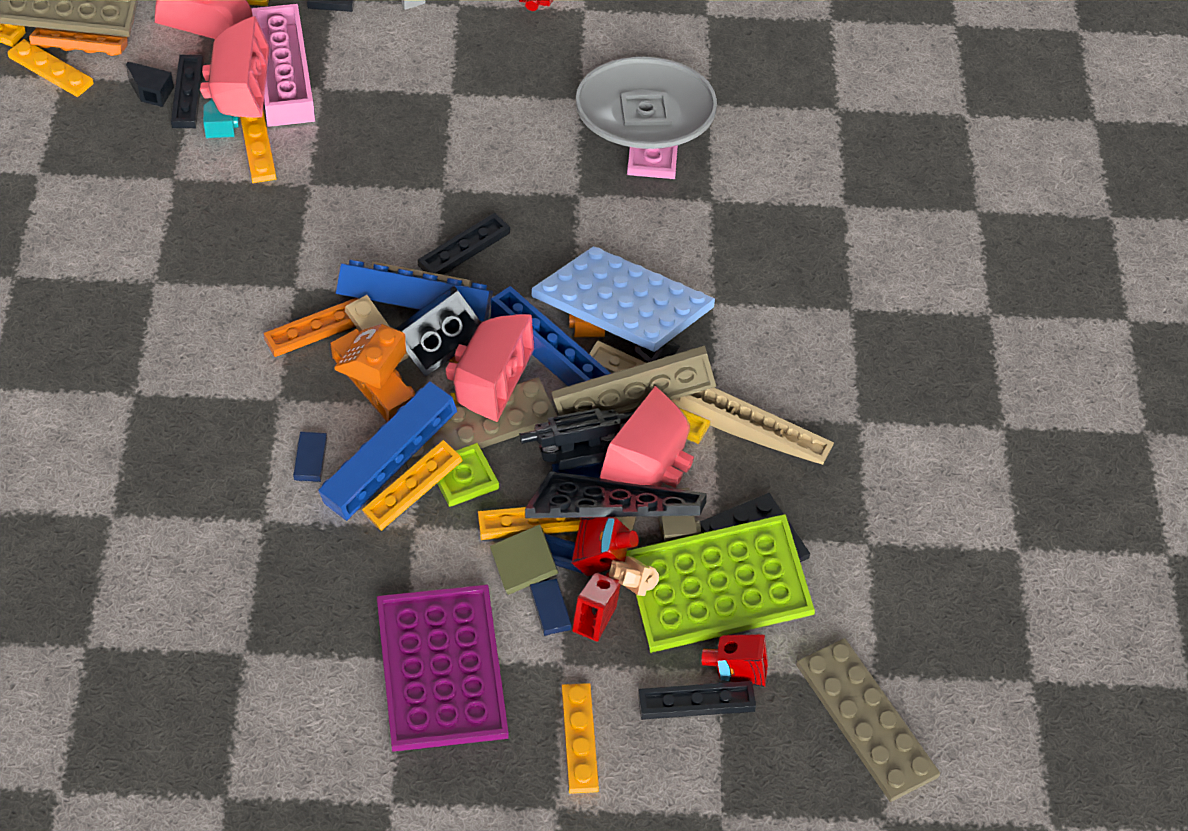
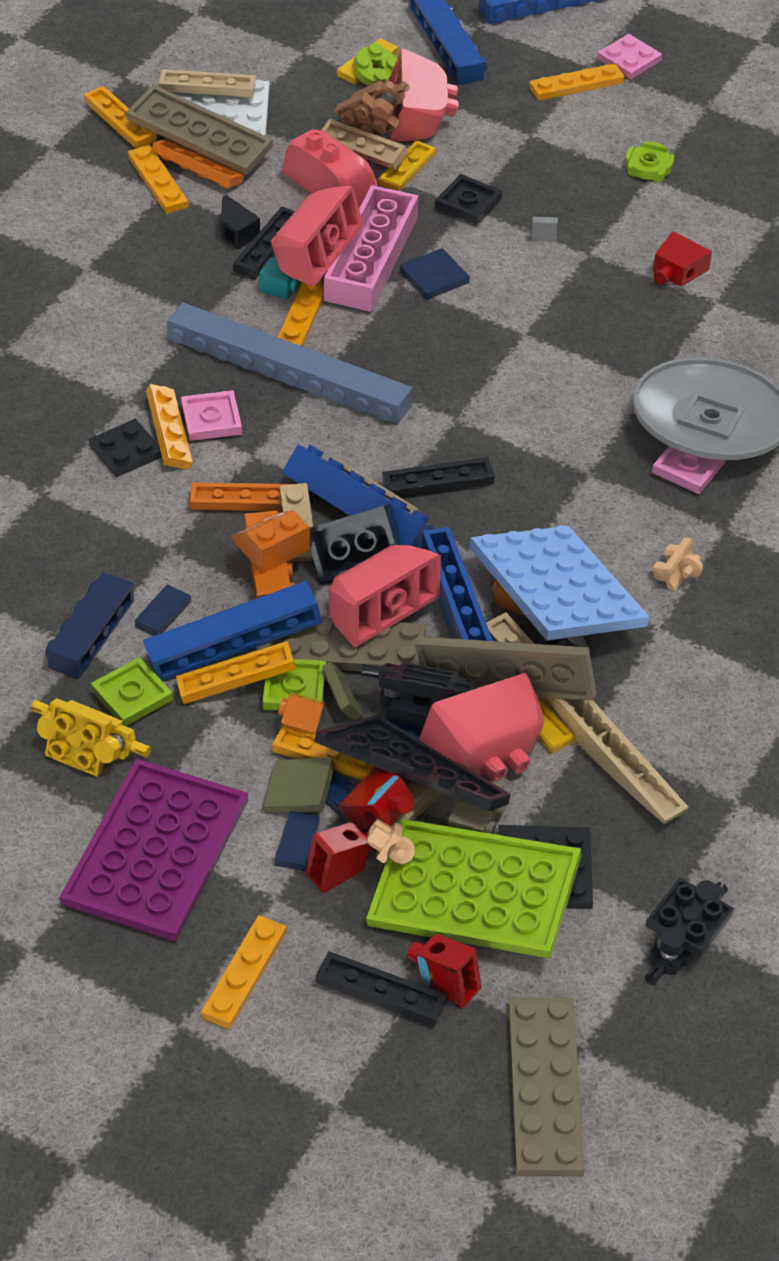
camera: 30 degrees right, 5 degrees down
(183, 324) = (125, 447): none -> black plate
(210, 290) = (169, 427): none -> light orange plate
(239, 266) = (211, 415): none -> bright pink plate
(259, 496) = (90, 625): none -> dark blue brick
(275, 193) = (290, 363): none -> sand blue brick
(320, 596) = (84, 736): none -> yellow piece
(332, 539) = (131, 691): none -> lime plate
(345, 68) = (434, 273): none -> dark blue tile
(489, 496) = (301, 712): none -> orange brick
(506, 463) = (342, 691): none -> olive tile
(701, 244) = (680, 564): none -> light nougat hips
(893, 539) = (686, 925): none -> black piece

